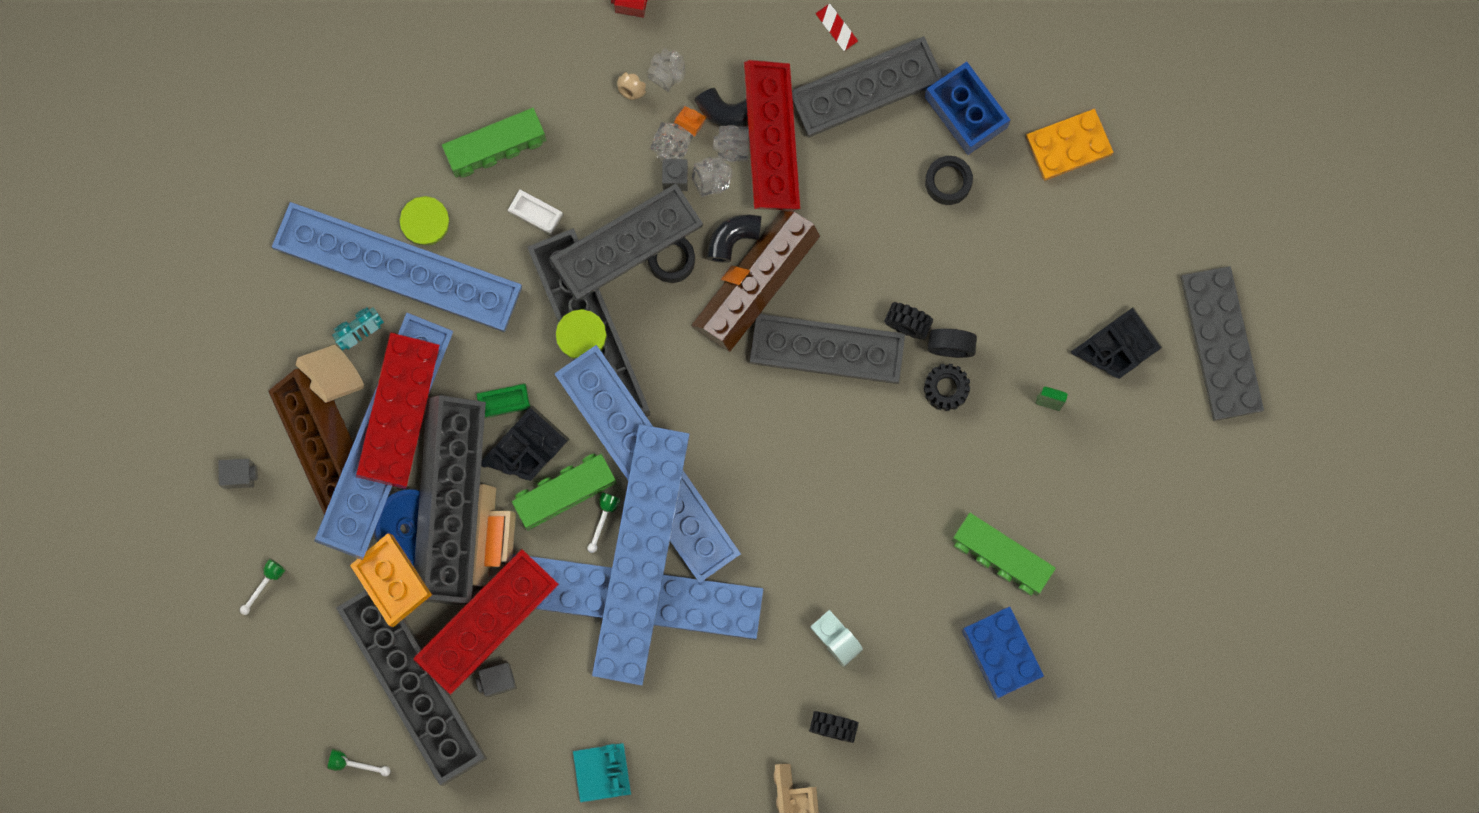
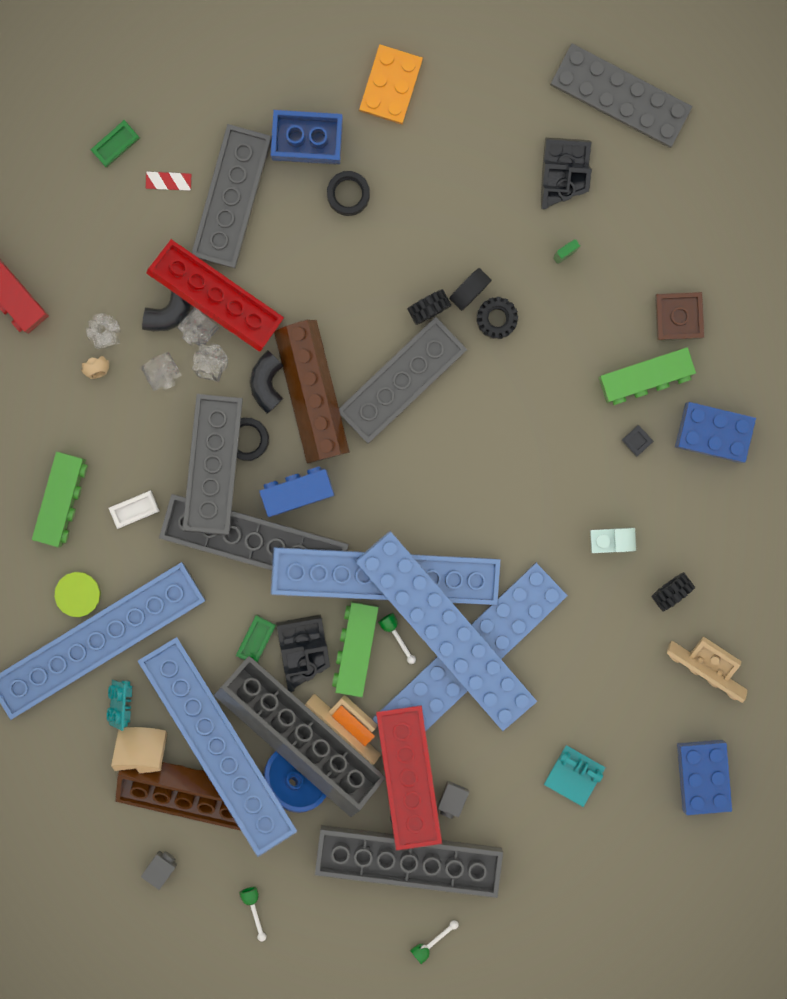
camera: 55 degrees left, 10 degrees up
(391, 580) = (328, 823): light orange plate -> none
(397, 411) = (207, 724): red plate -> none
(580, 332) = (254, 550): lime tile -> none
(659, 333) = (296, 491): none -> blue brick
(675, 172) = (187, 388): dark grey brick -> none
(690, 120) = (155, 345): orange plate -> none
(735, 275) = (297, 404): orange sticker -> none
(940, 592) = (637, 440): none -> black tile
(1077, 542) = (679, 316): none -> reddish brown plate

